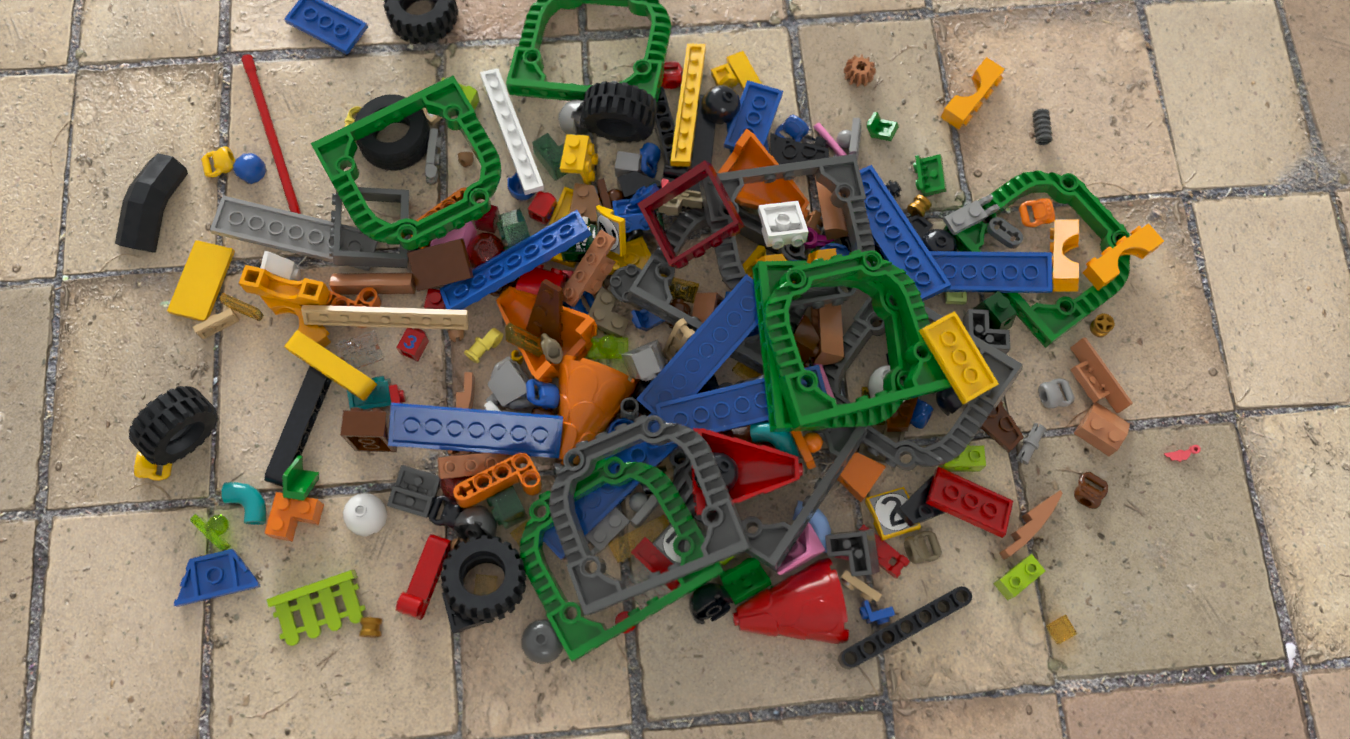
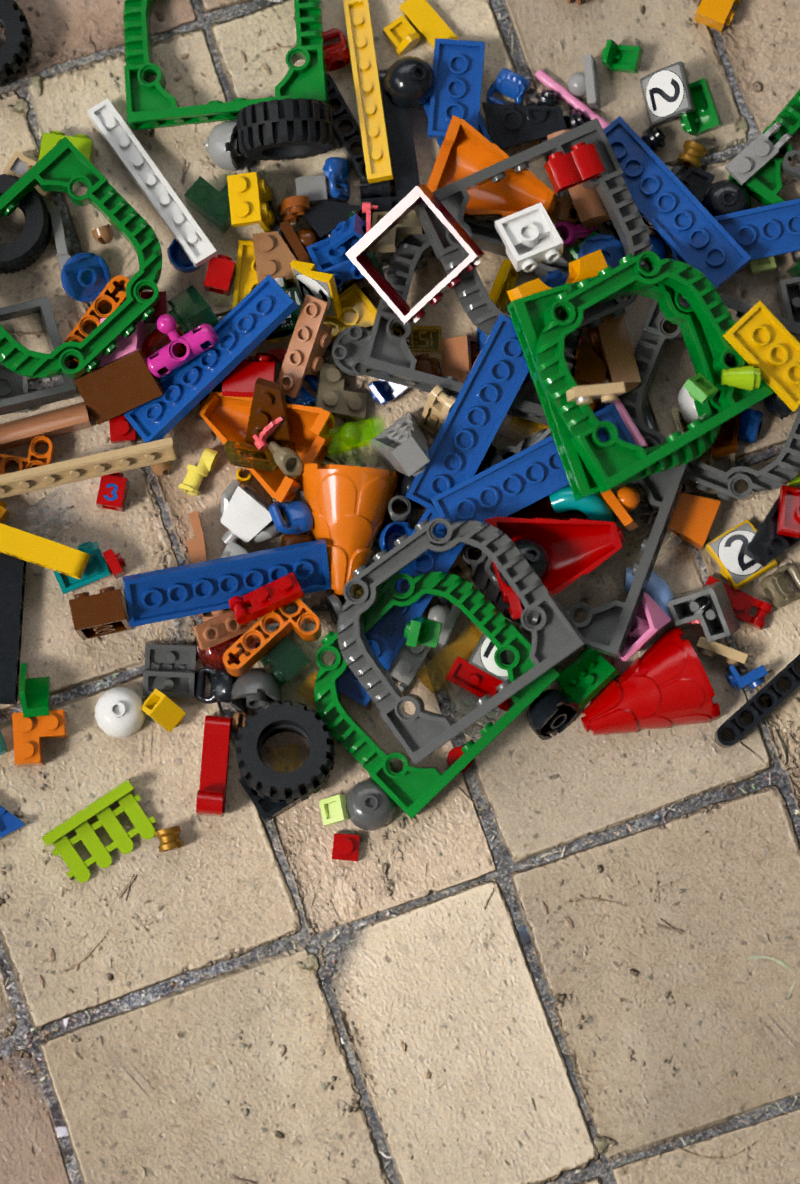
camera: 10 degrees left, 10 degrees up
(397, 521) = (163, 710): none -> yellow brick
(441, 182) = (85, 276): none -> blue tile
(483, 249) = (167, 355): none -> dark pink piece
(502, 451) = (265, 599): none -> red plate
(511, 637) = (334, 810): none -> yellowish green plate
(512, 671) = (345, 847): none -> red plate
(535, 332) = (261, 442): none -> coral piece
(610, 171) = (293, 208): none -> dark orange plate
(619, 507) = (422, 632): none -> green bracket
(802, 343) = (606, 392): none -> tan piece
(829, 182) = (574, 167): none -> red brick
(892, 365) = (700, 388): none -> bright green plate
(910, 159) = (667, 94): none -> slope
(929, 366) = (741, 377): none -> lime cone

